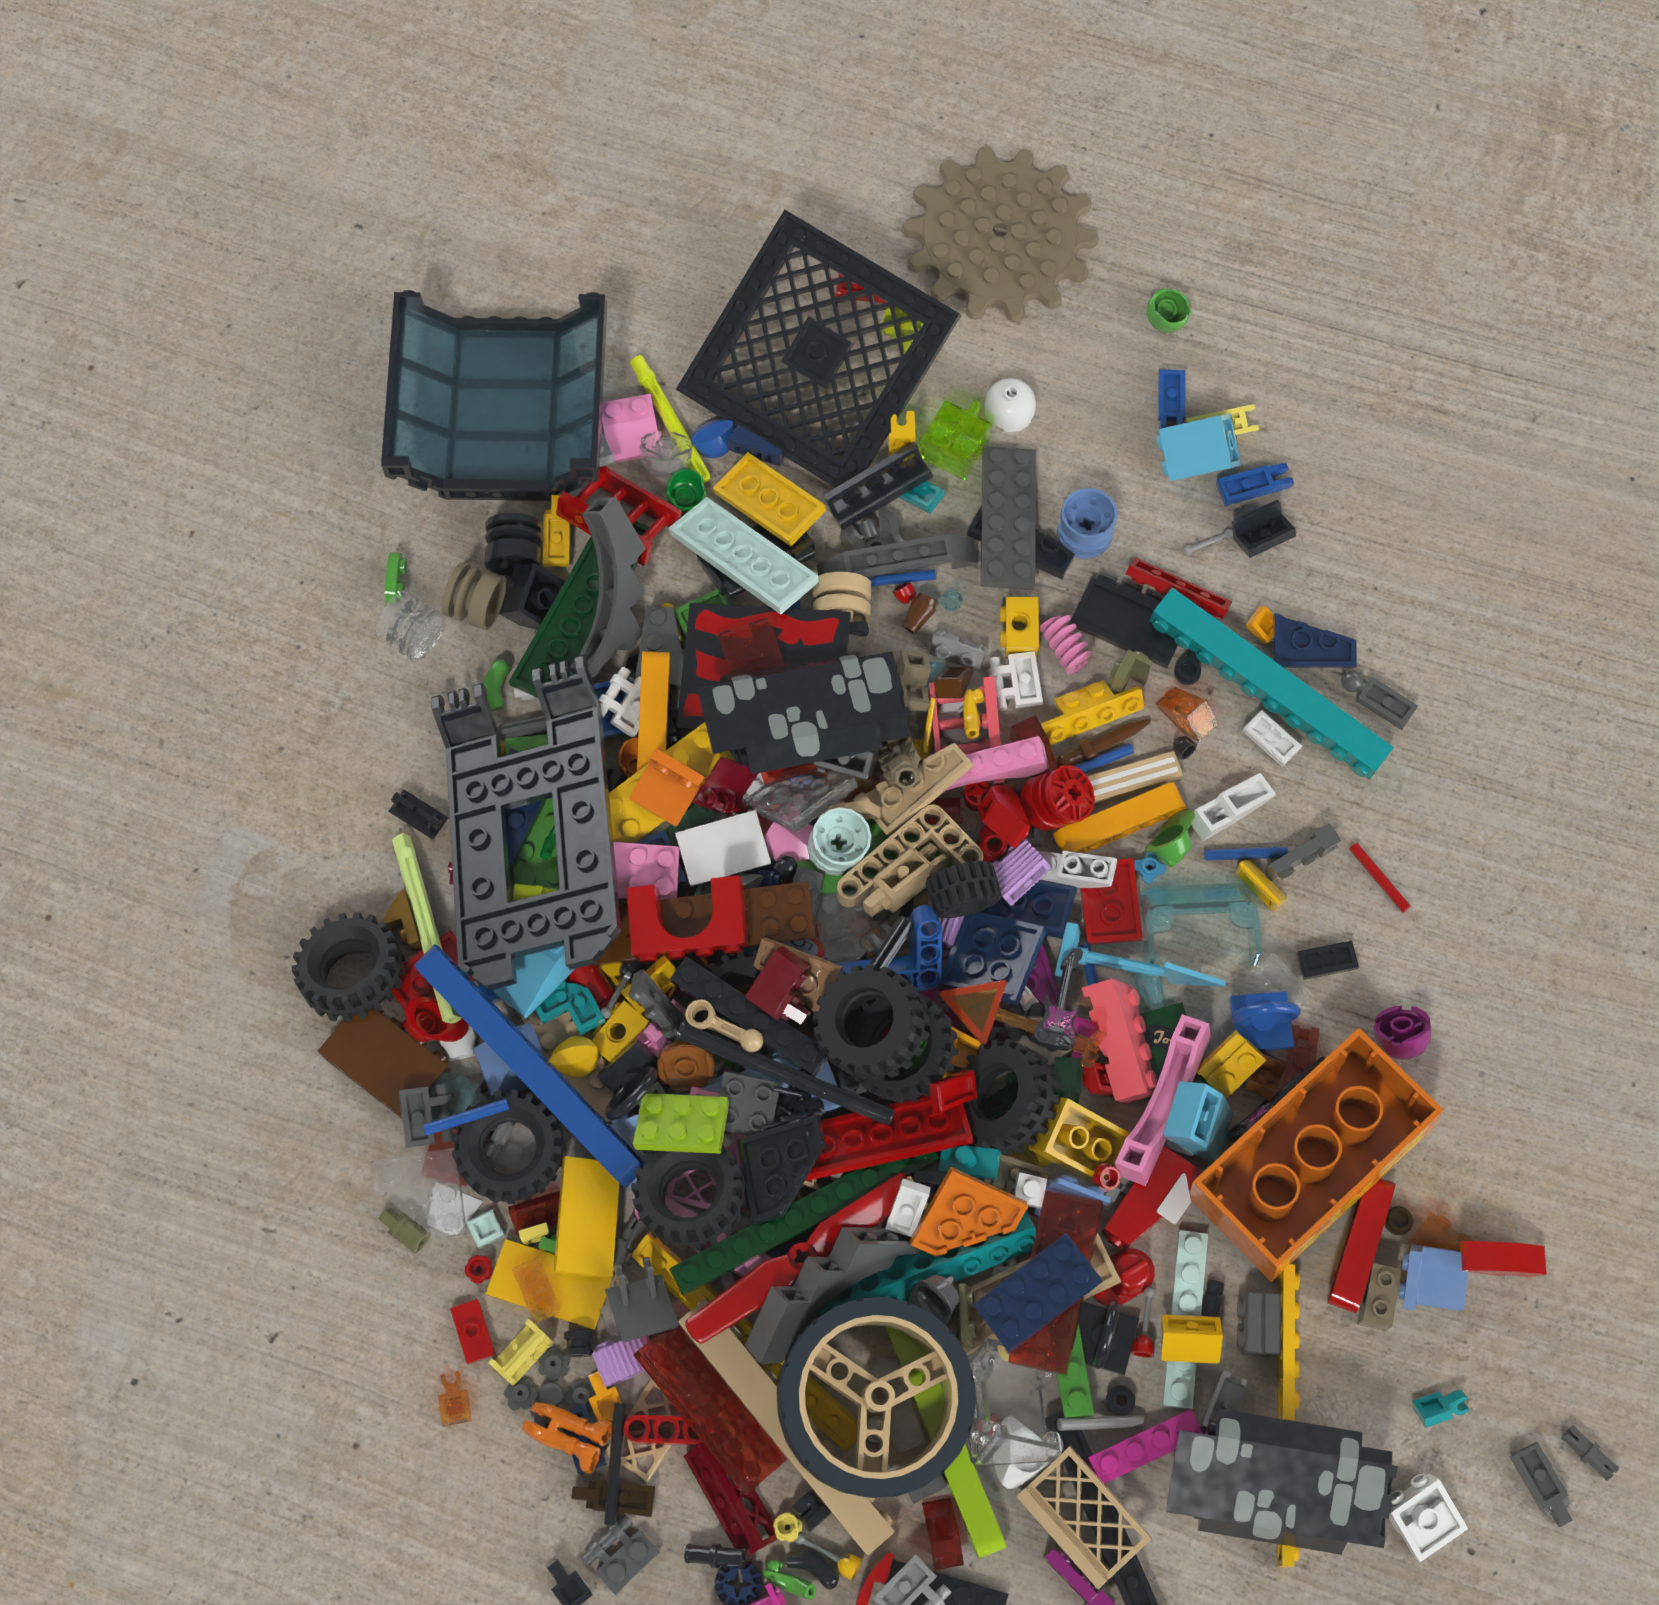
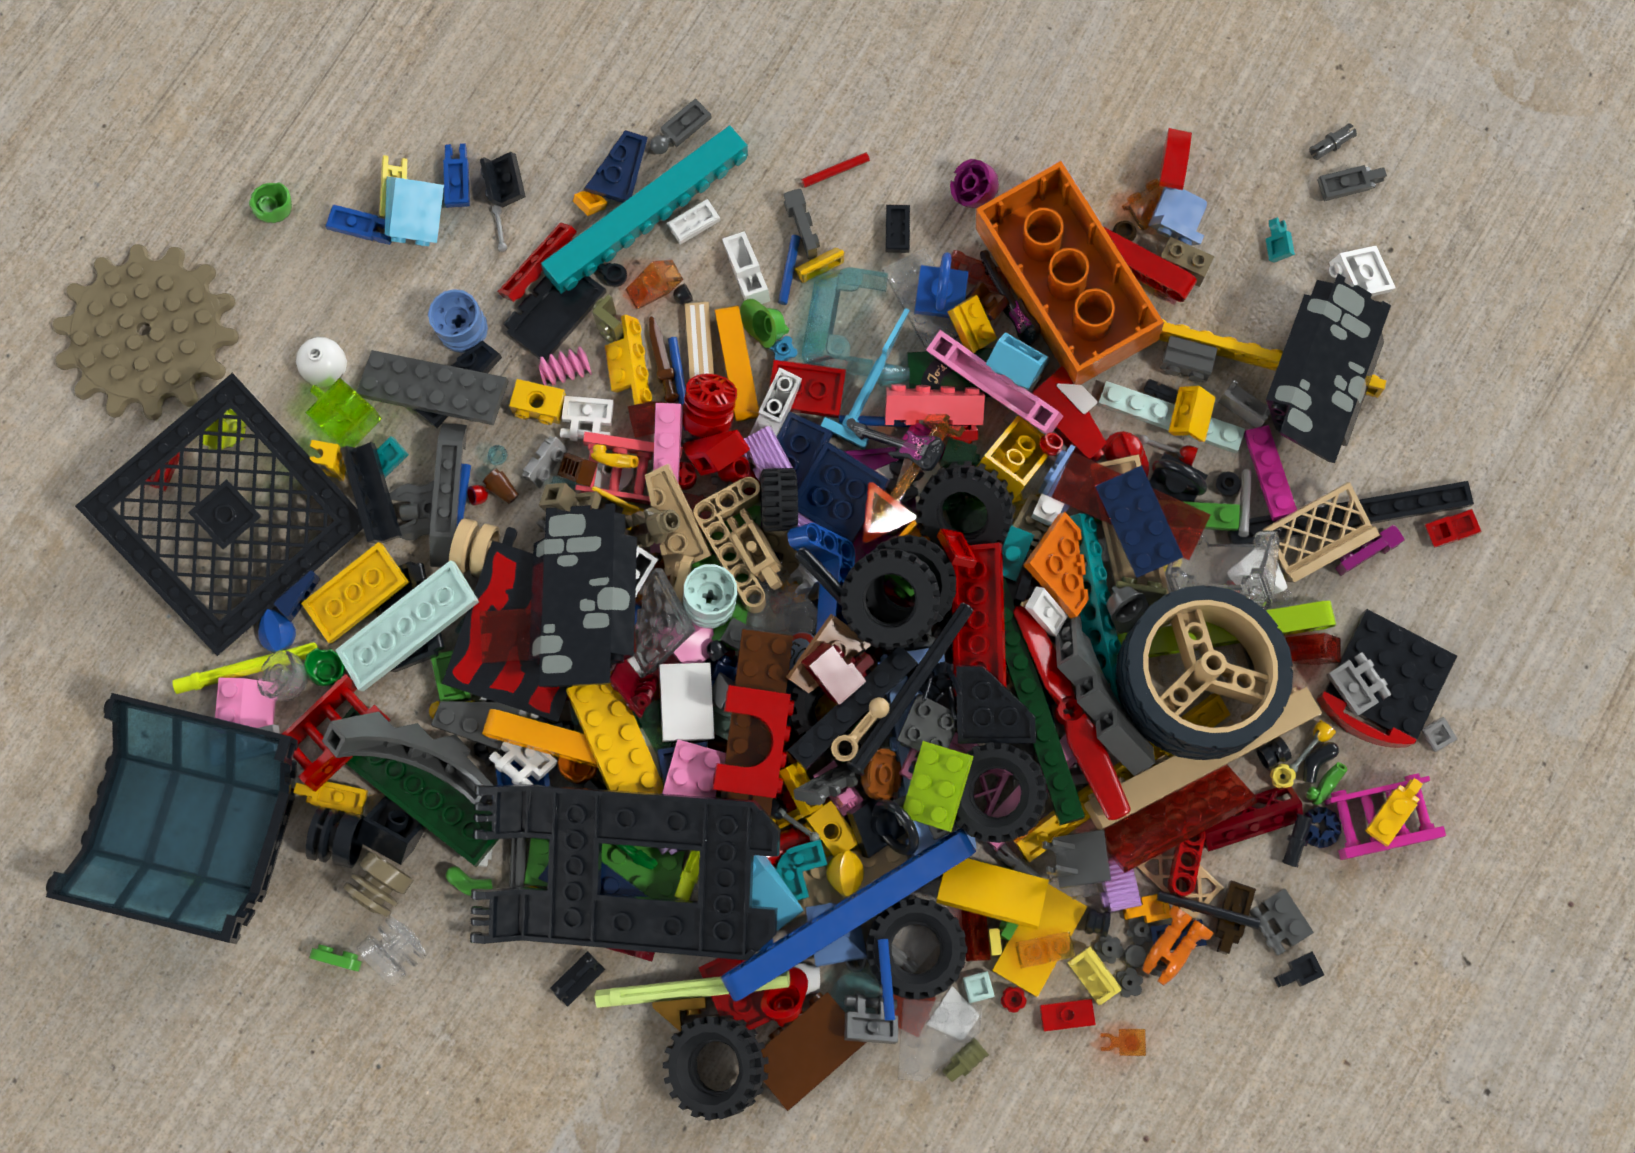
camera: 80 degrees left, 5 degrees up
(667, 787) = (623, 736): orange bracket -> none

